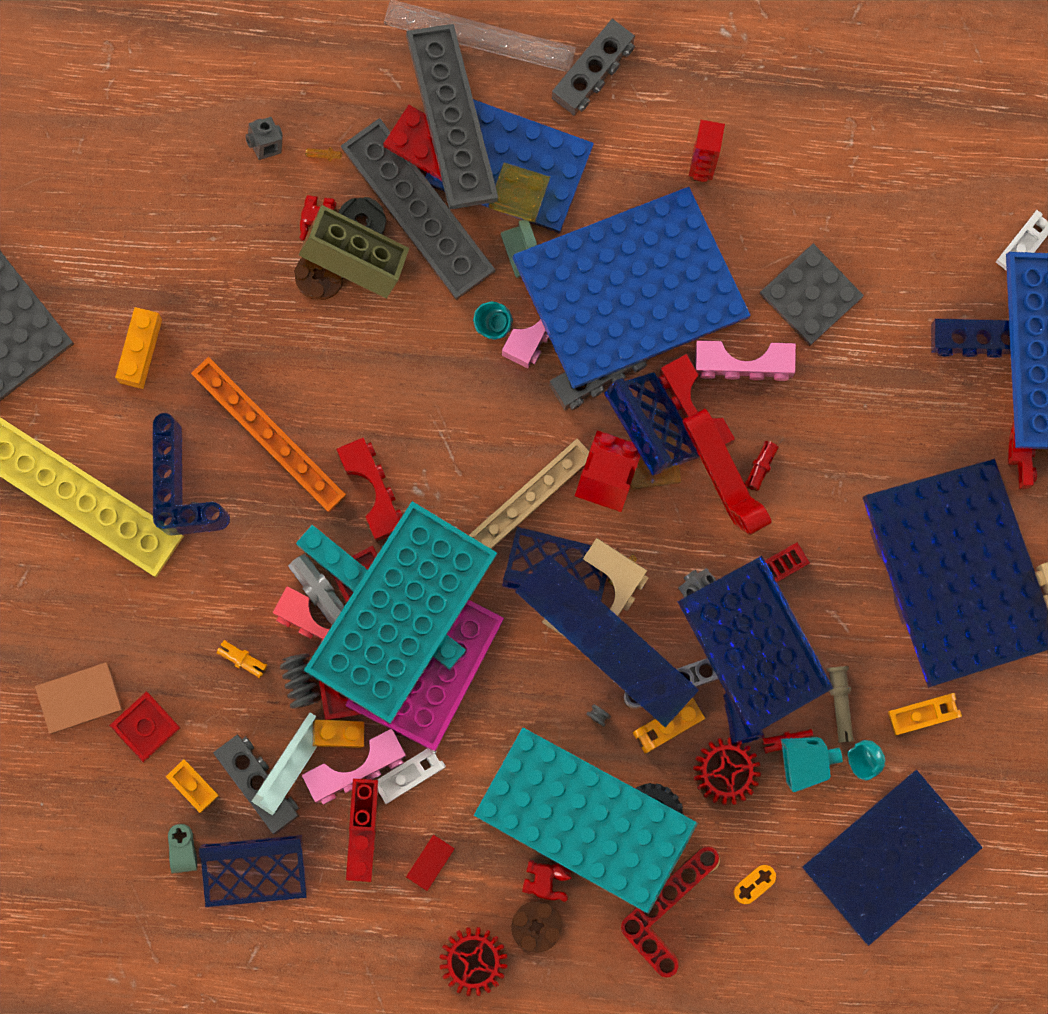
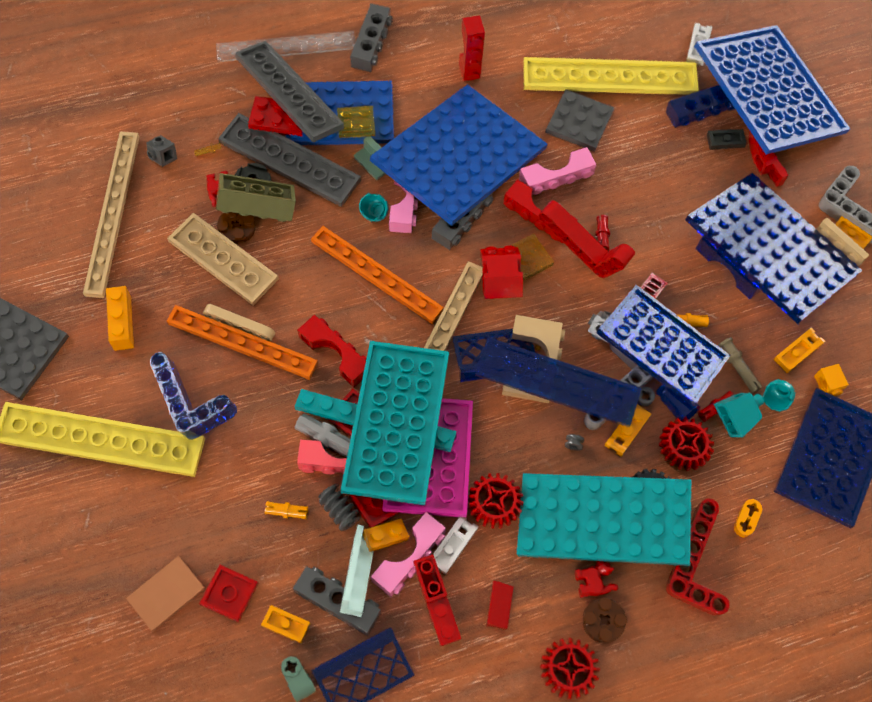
camera: 25 degrees left, 15 degrees down
(176, 199) = (111, 215): none -> tan plate
(273, 409) = (239, 322): none -> tan beam
(286, 315) = (223, 259): none -> tan plate
(461, 410) = (377, 274): none -> orange plate
(479, 767) = (509, 491): none -> red gear
(642, 428) = (515, 229): clear blue fence -> none
(702, 690) = (646, 390): none -> dark grey bush
(812, 623) = (695, 320): none -> light orange pin
(882, 246) = (610, 76): none -> light yellow plate
(940, 768) = (831, 380): none -> light orange brick
(986, 398) = (726, 139): none -> pearl dark grey plate

